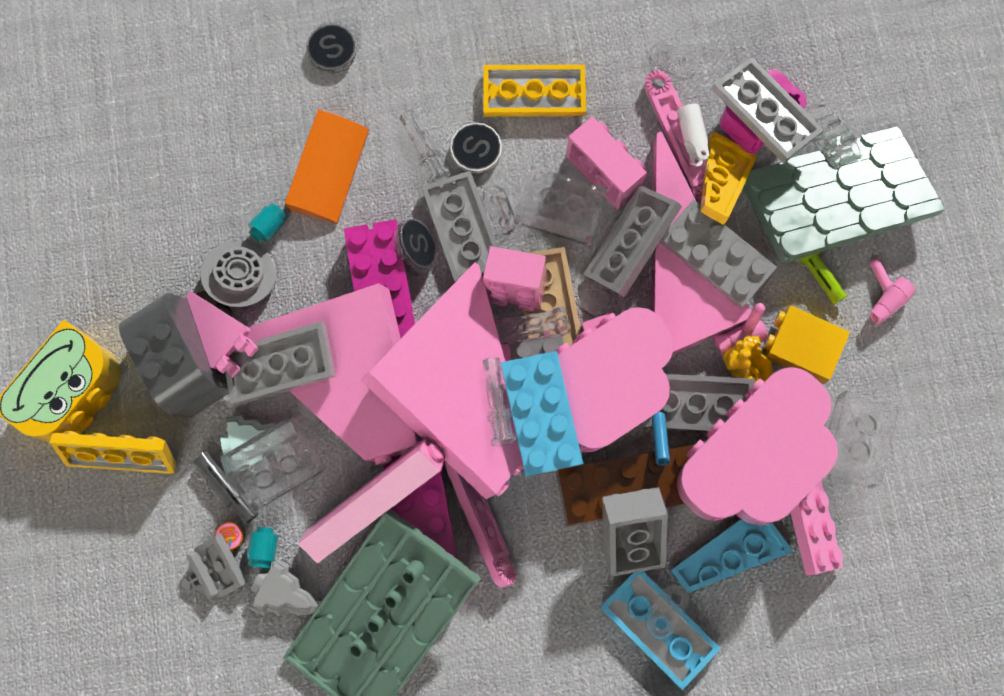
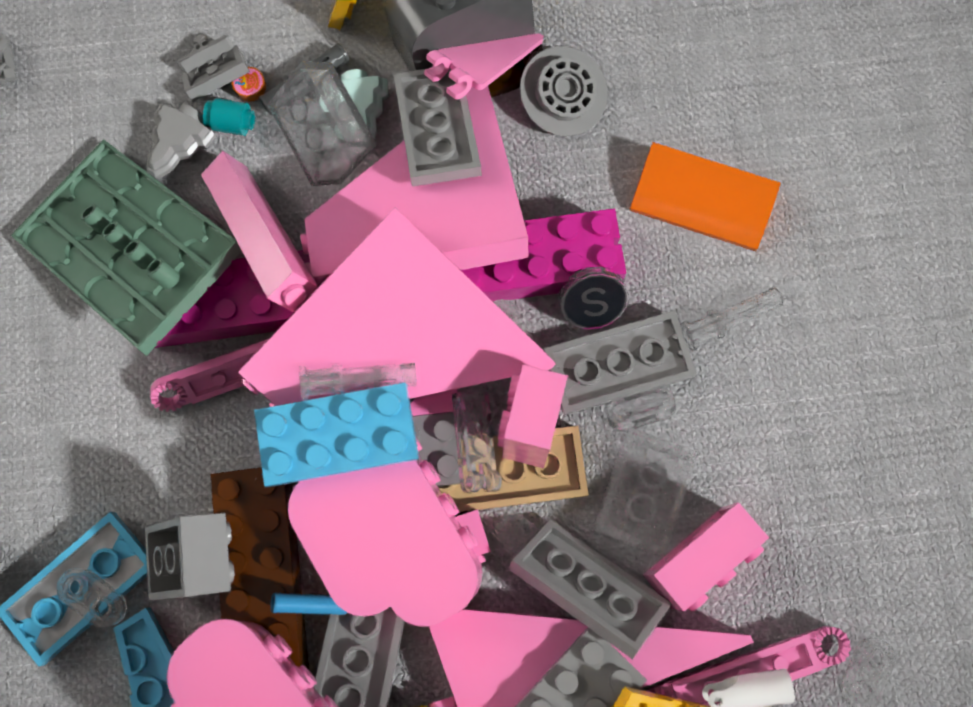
camera: 95 degrees right, 0 degrees up
(267, 223) = (628, 124): teal brick -> none
(331, 48) = (869, 205): black tile -> none
(476, 148) = (731, 386): black tile -> none
(534, 90) = (815, 468): yellow piece -> none

